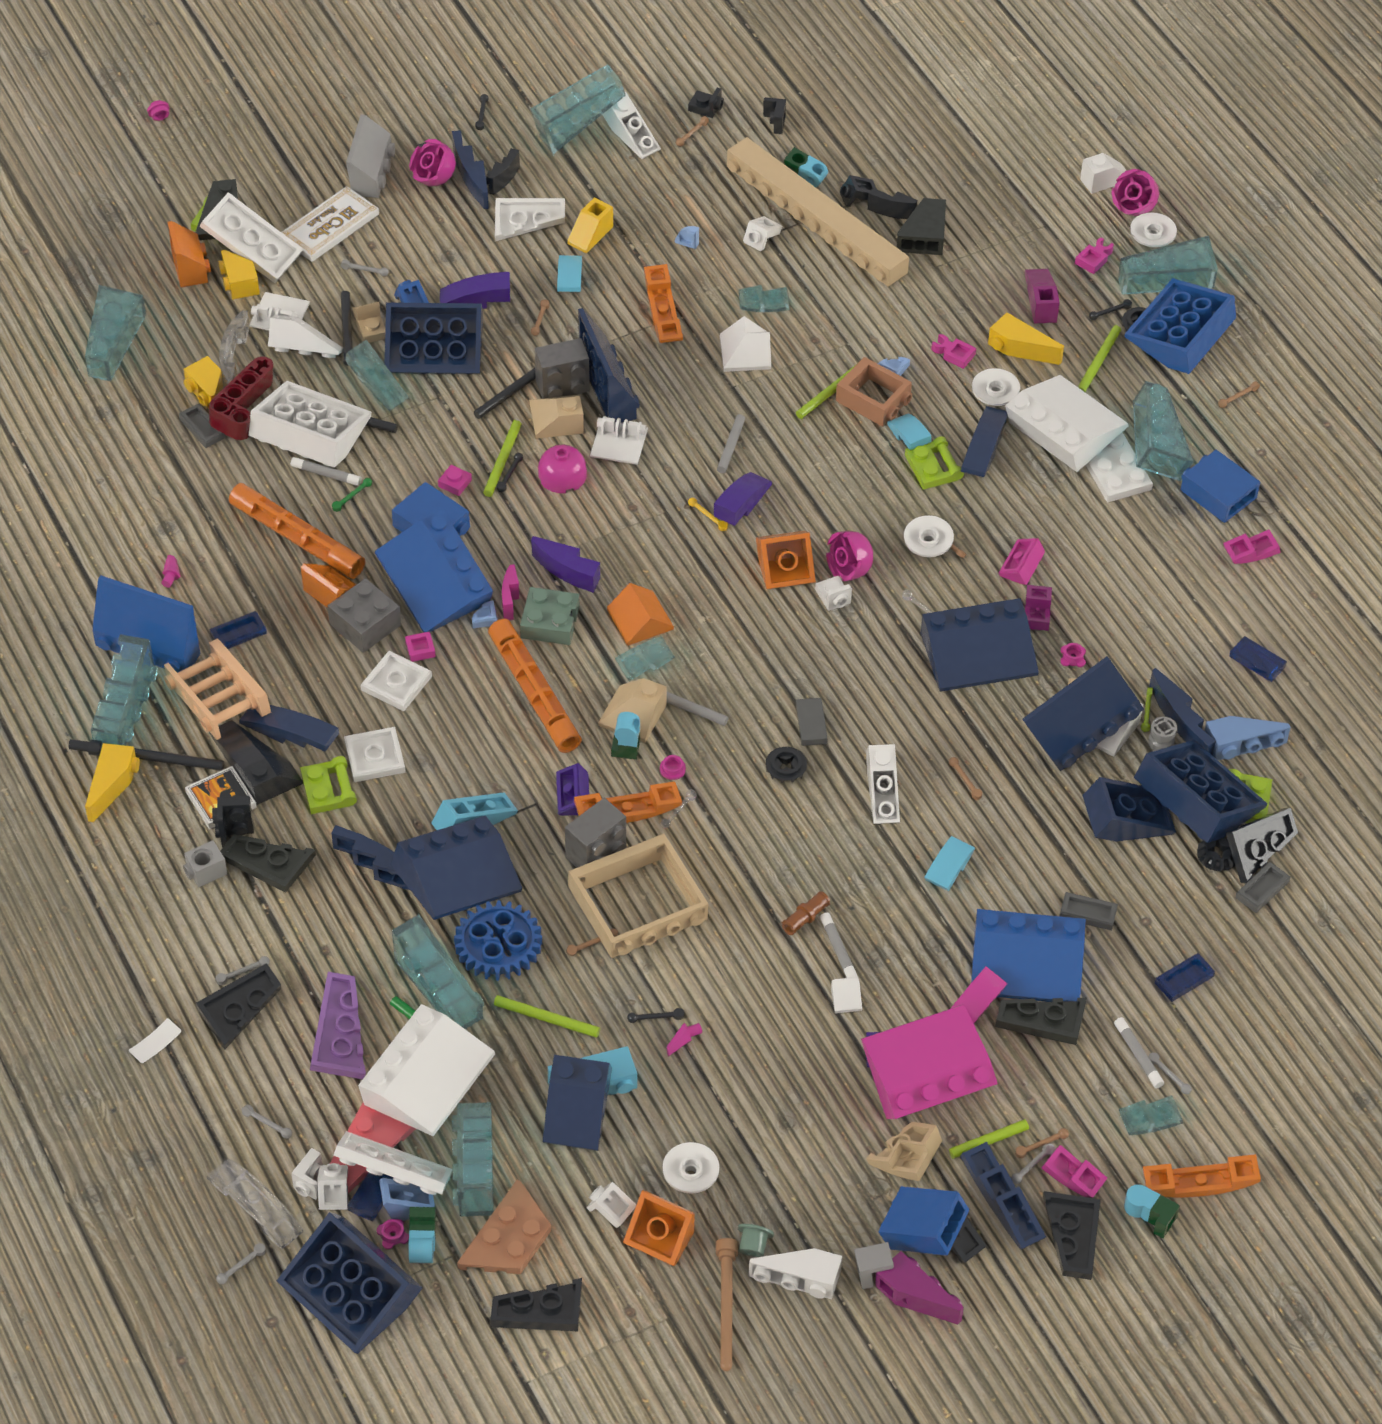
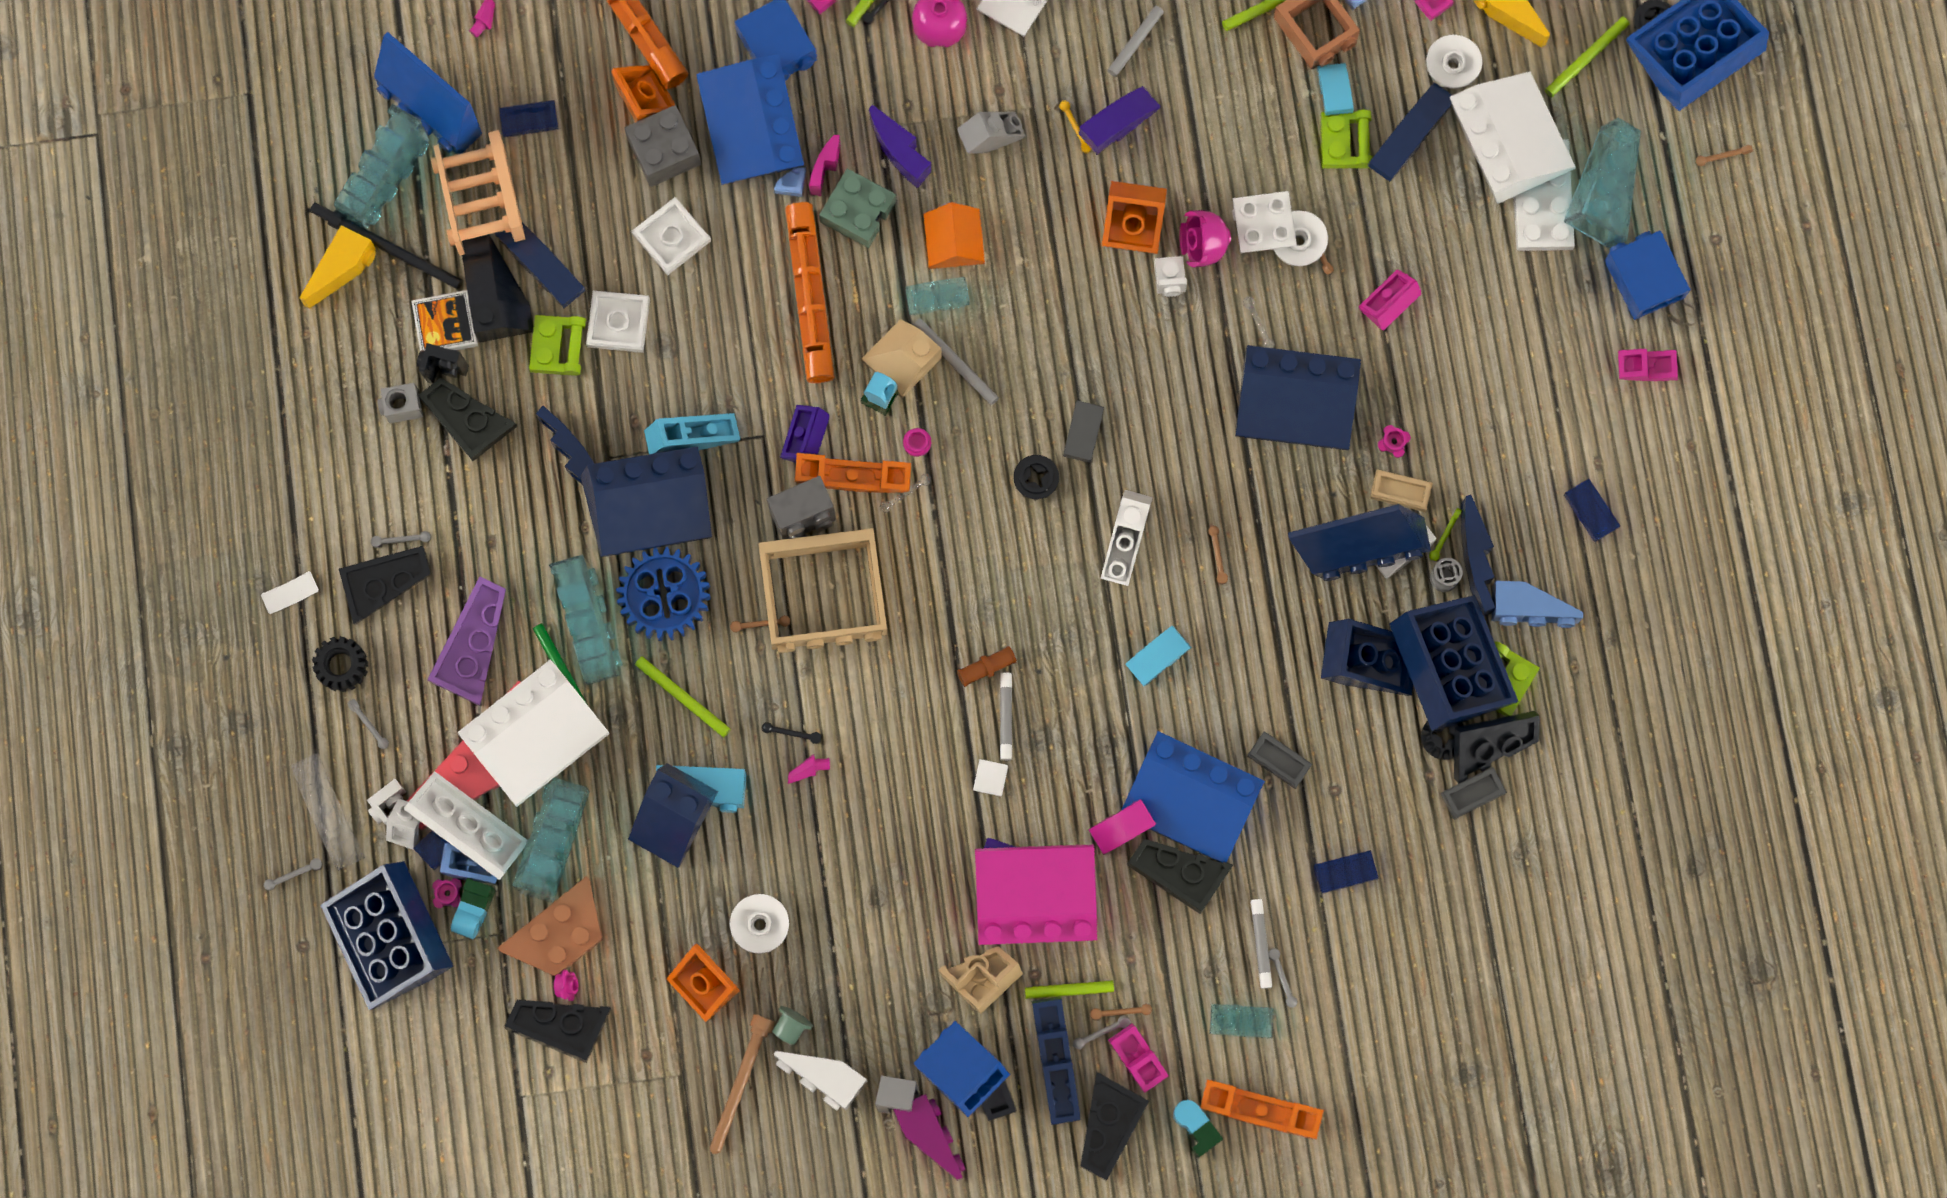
camera: 20 degrees right, 25 degrees up
(221, 1066) = (352, 676): none -> black tyre
(420, 646) = (708, 203): dark pink plate -> none
(534, 1272) = (566, 985): none -> dark pink plate
(611, 1203) = (667, 936): white bracket -> none
(639, 531) = (990, 131): none -> light grey slope
(894, 531) = (1264, 222): none -> white hinge
(1038, 606) = (1381, 366): magenta slope -> none

